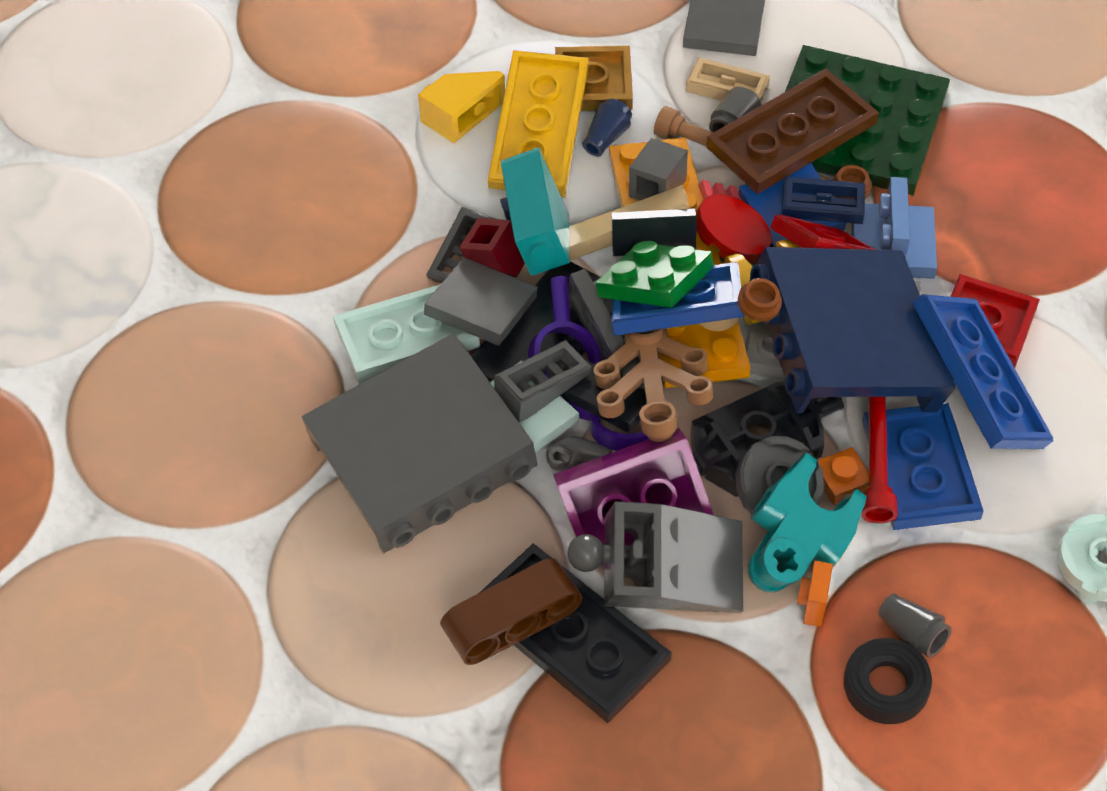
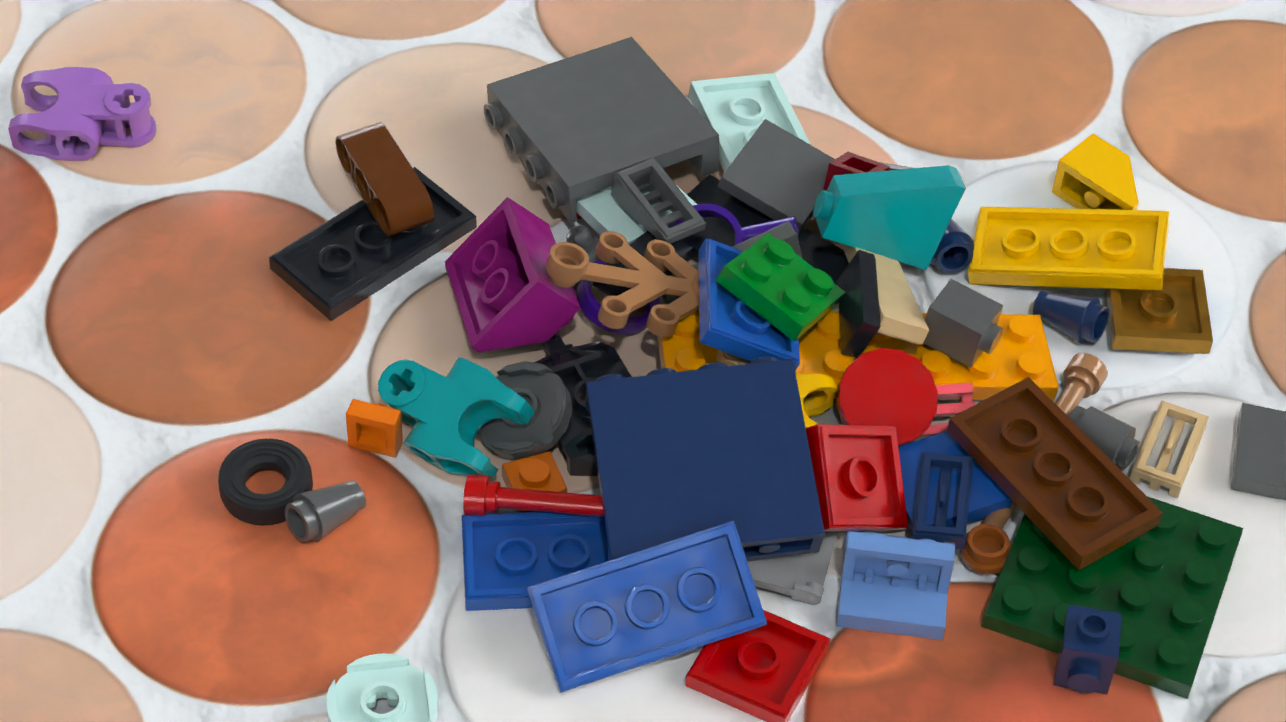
camera: 90 degrees right, 5 degrees down
(675, 562) = (421, 289): dark grey slope -> none
(759, 300) = (708, 341): dark orange plate -> none
(947, 115) = (1088, 650): none -> dark blue bracket

